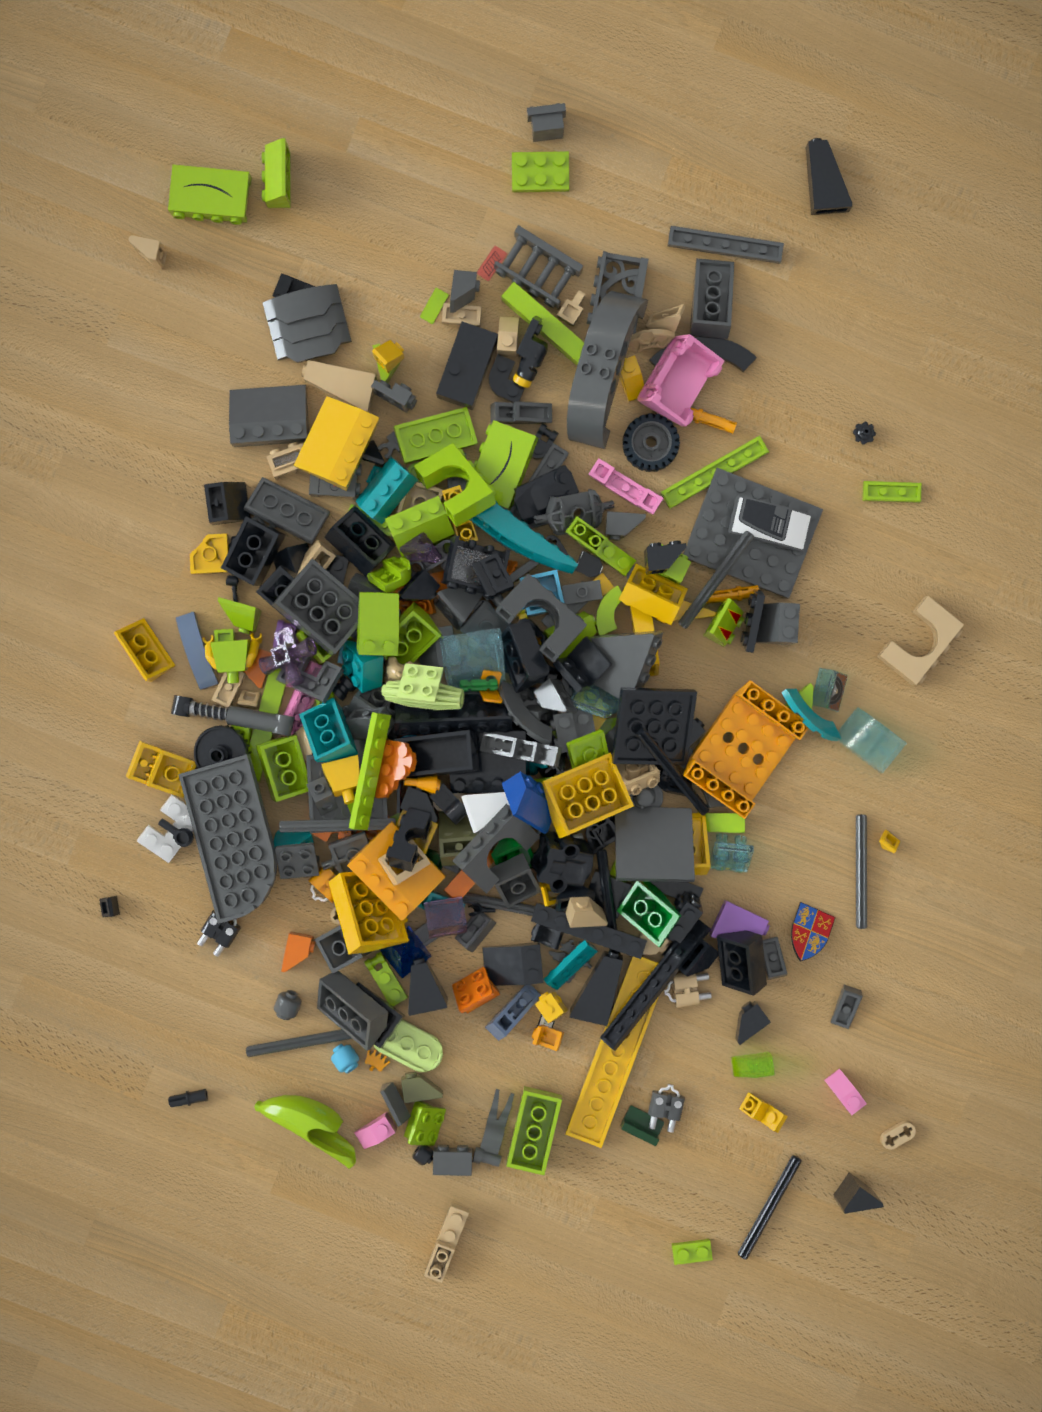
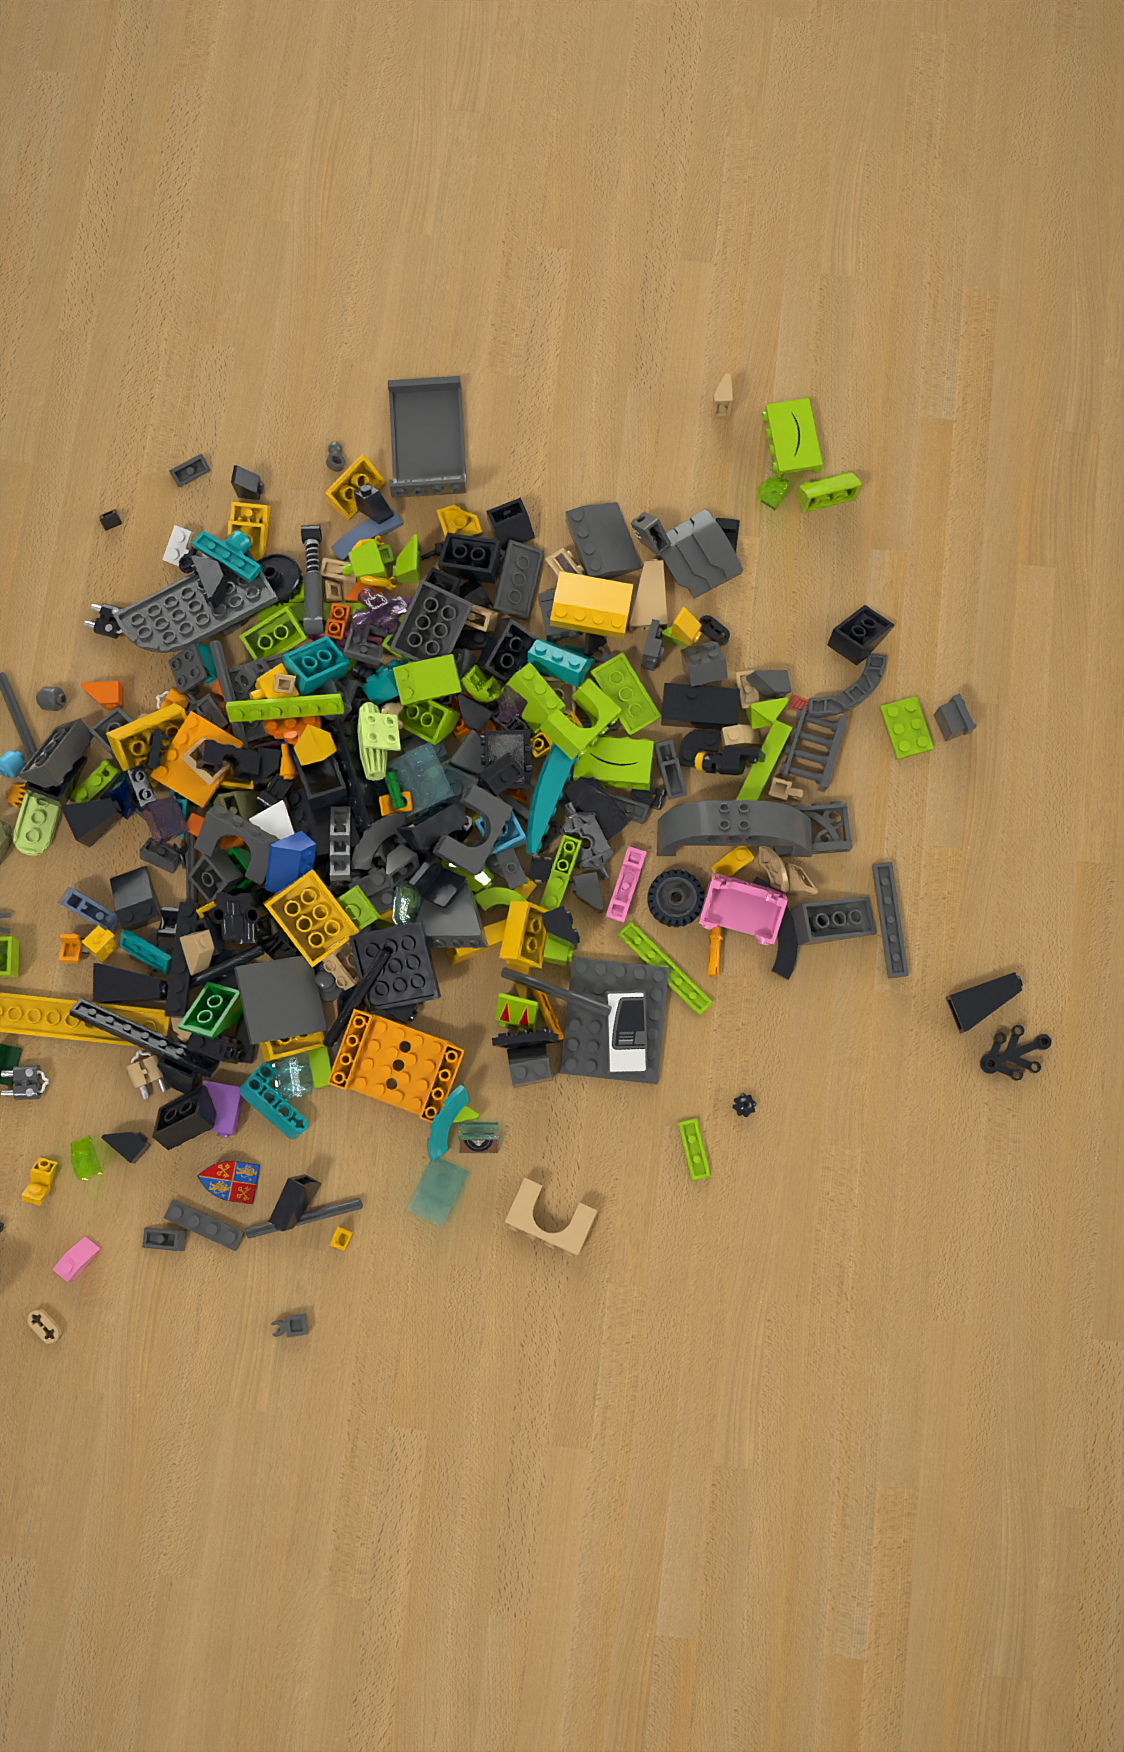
camera: 80 degrees right, 10 degrees down
(77, 814) = (189, 470): none -> dark grey slope
(109, 663) = (335, 460): none -> dark grey plate
(111, 563) = (427, 437): none -> dark grey panel
(111, 757) = (246, 484): none -> black slope
(169, 635) = (372, 503): none -> black slope
(186, 791) = (229, 553): none -> teal plate
(210, 816) = (211, 579): none -> slope
(262, 230) = (772, 491): none -> clear neon green slope
(266, 366) = (648, 526): none -> dark grey torso
(284, 701) = (337, 621): none -> orange slope
(344, 766) = (283, 683): none -> tan slope
(384, 912) = (153, 758): none -> black plate
(388, 326) = (716, 626): none -> black beam
(409, 933) = (140, 786): none -> black plate
(421, 750) = (314, 745): none -> yellow slope
(426, 349) = (704, 663): none -> dark grey brick
(434, 305) = (747, 663): lime sticker -> none
(435, 187) = (859, 634): none -> black slope
(474, 991) = (100, 867): orange bracket -> none
(493, 302) = (765, 712): none -> lime slope
(495, 211) = (853, 695): none -> dark grey tile
(771, 861) = (292, 1123): none -> teal beam
(773, 958) = (196, 1151): dark grey slope -> none
(843, 966) = (204, 1225): none -> dark grey plate
(846, 876) = (293, 1201): none -> black slope
(881, 168) = (1012, 1054): none -> black plant
(957, 902) = (294, 1326): none -> dark grey plate

